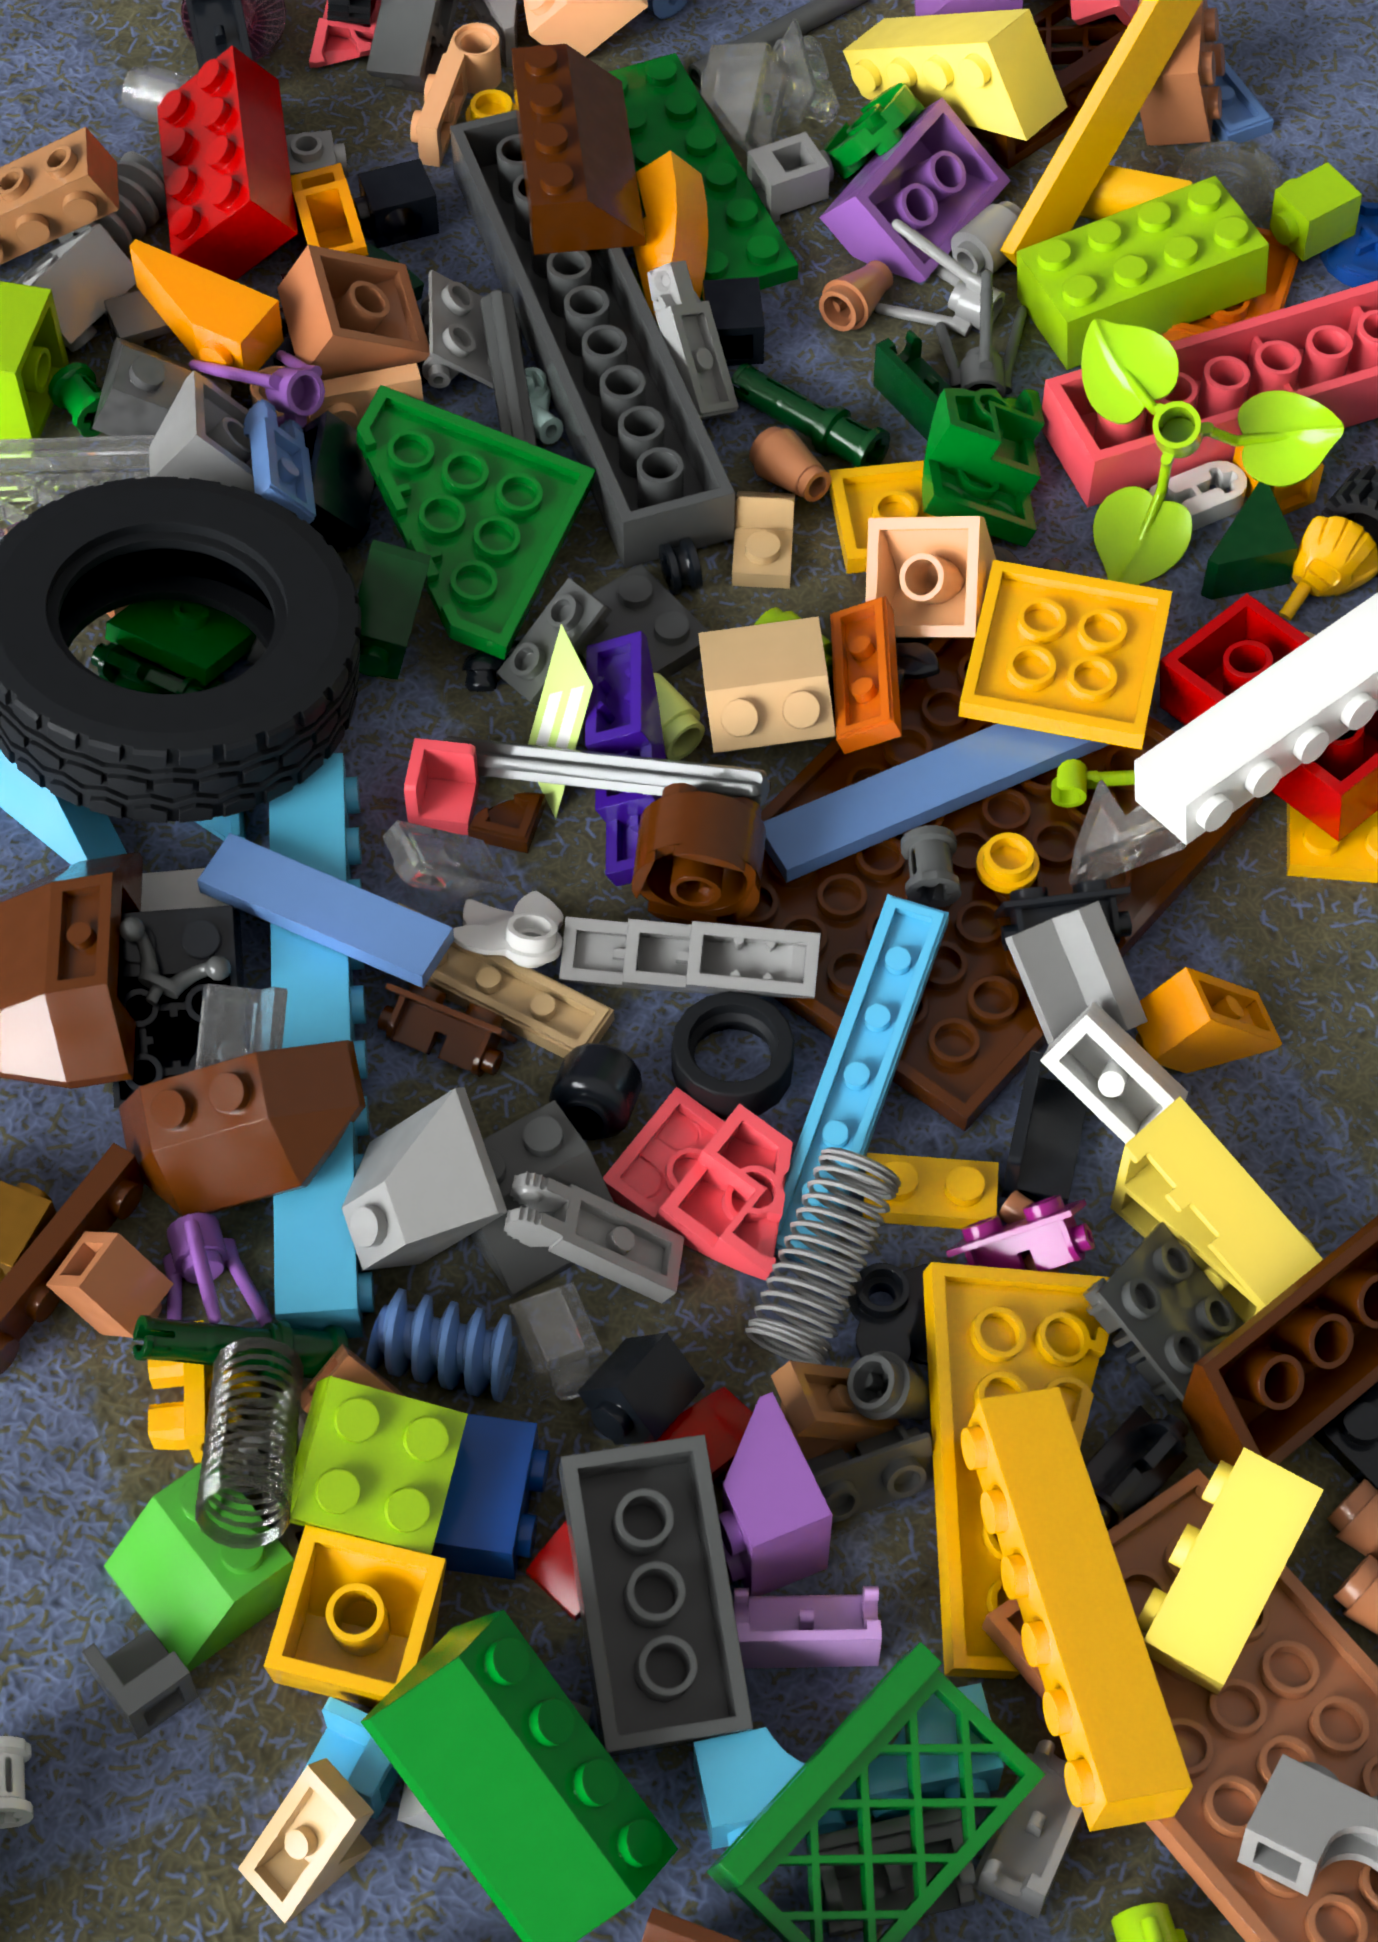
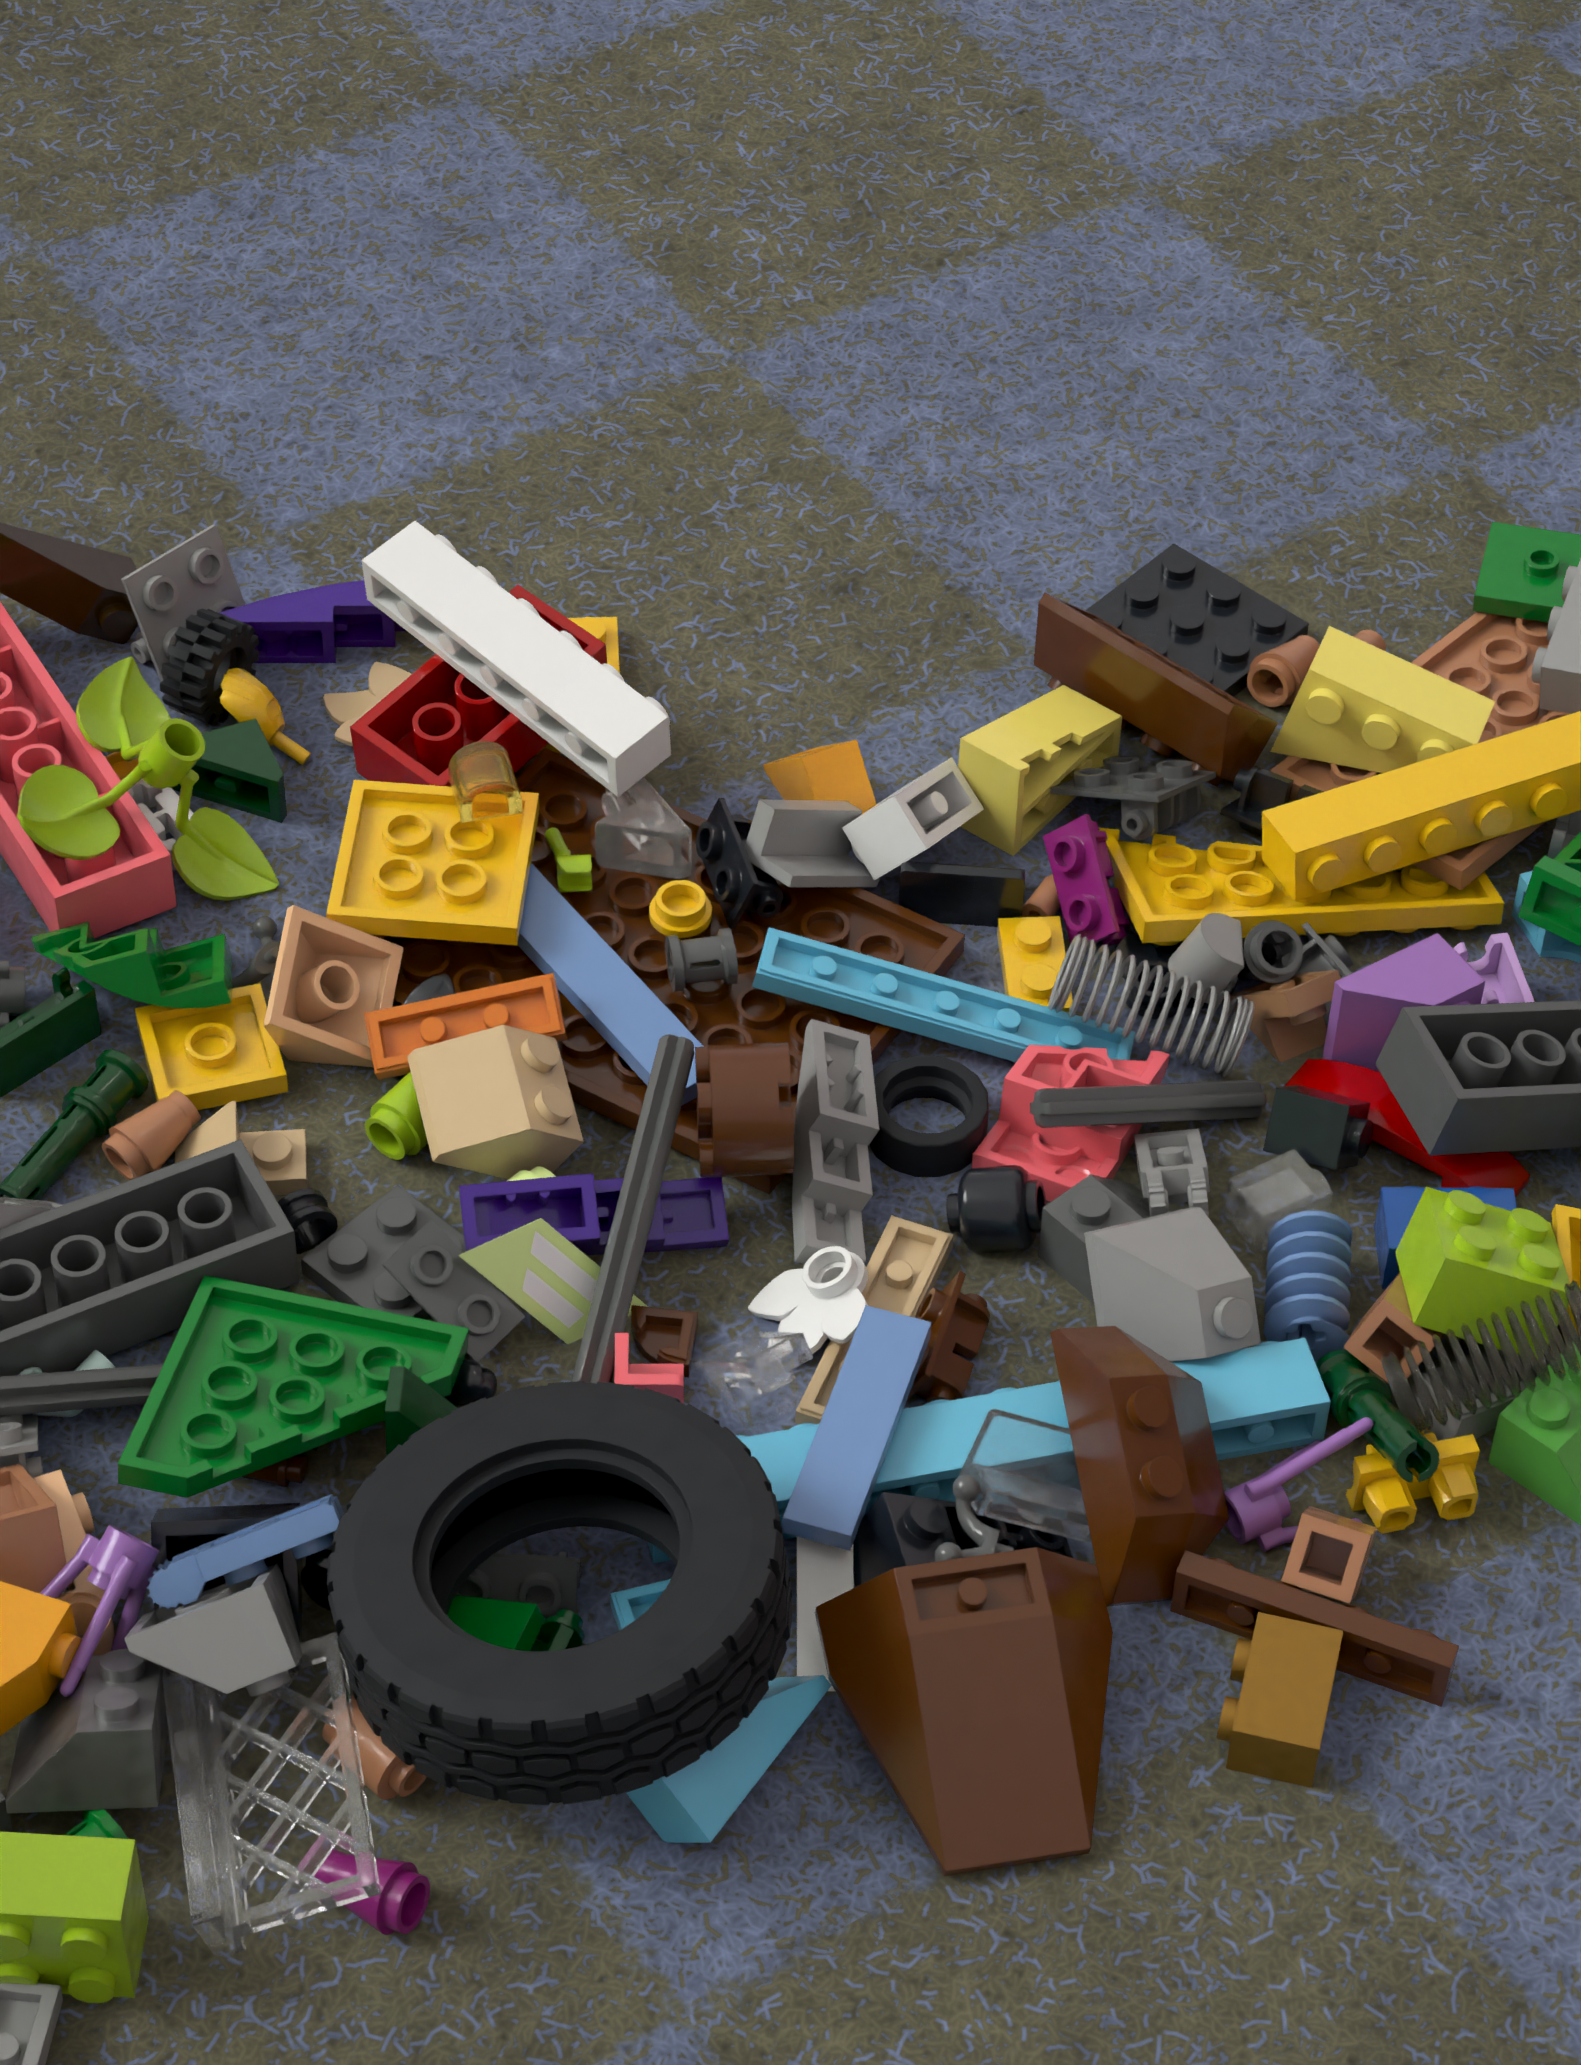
camera: 100 degrees left, 10 degrees down
(698, 1239) = (1147, 1103): none -> dark grey axle
(889, 1325) = (1210, 953): none -> light grey brick
(1142, 681) = (484, 782): none -> clear yellow brick

